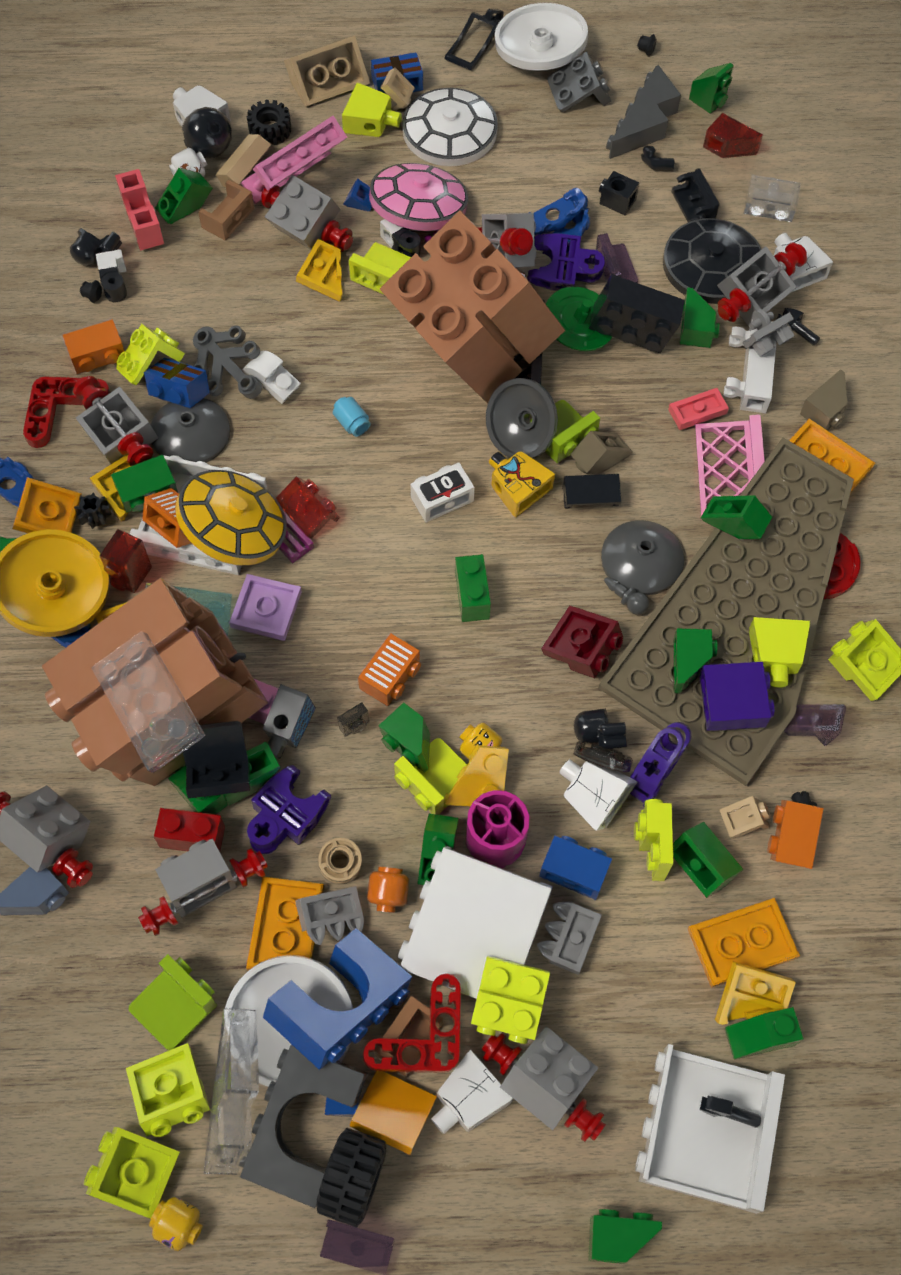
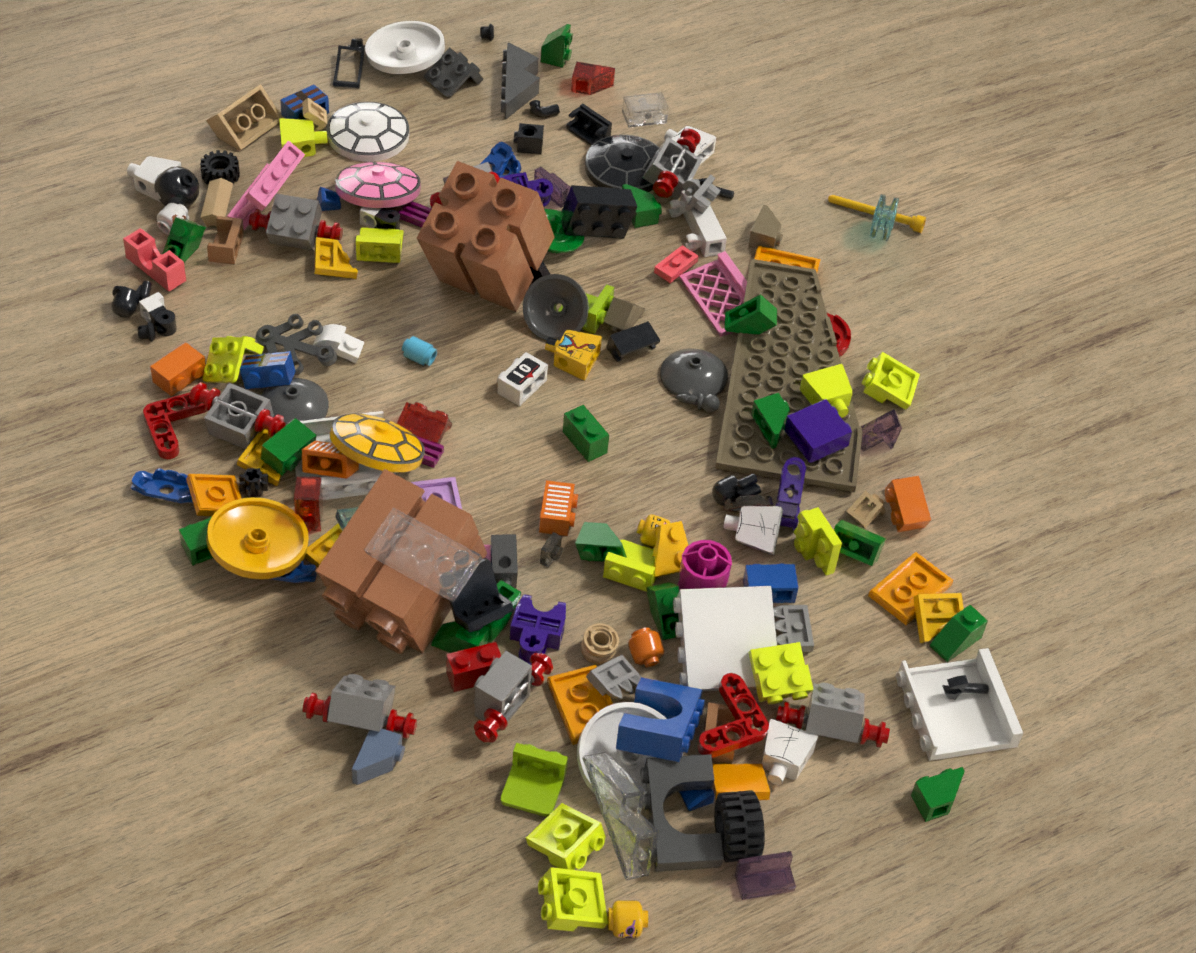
camera: 30 degrees left, 15 degrees down
(584, 641) = (688, 439): dark red plate -> none

